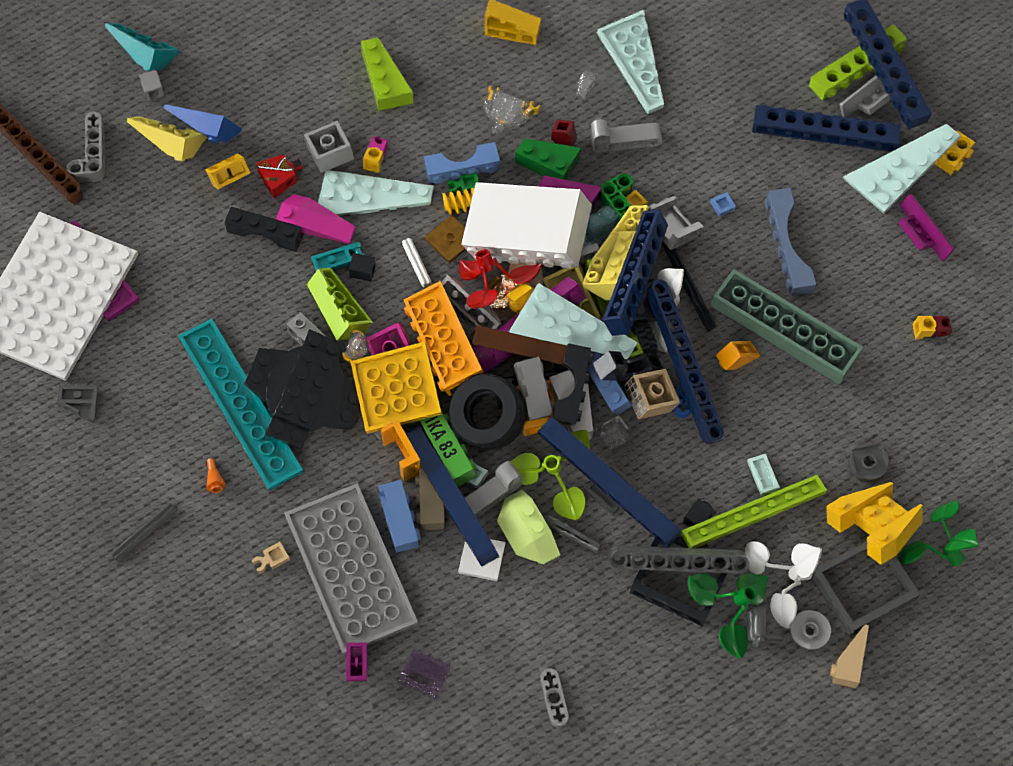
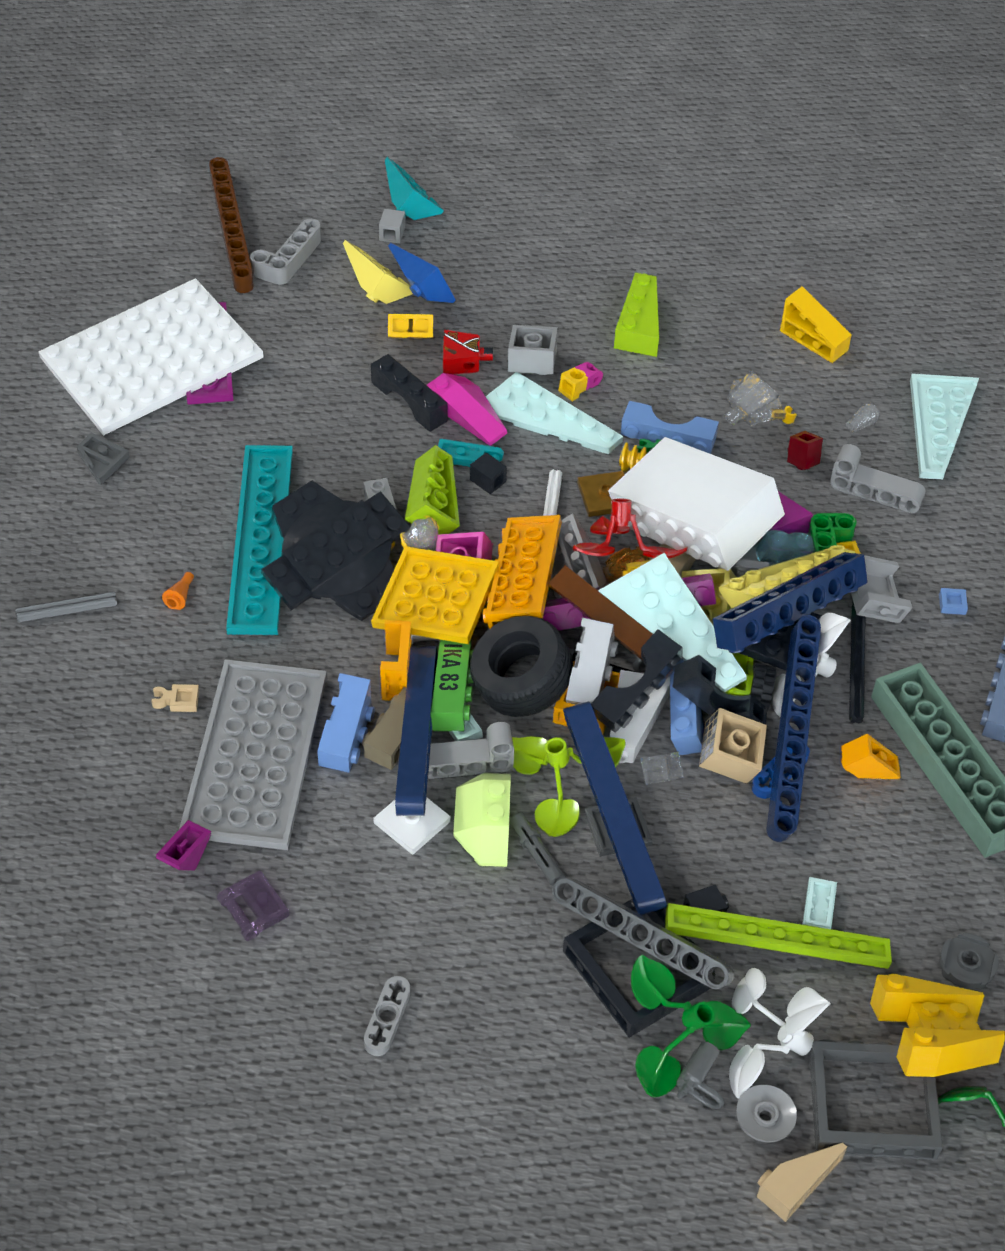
camera: 30 degrees right, 15 degrees down
(547, 158) = (768, 458): green wedge -> none

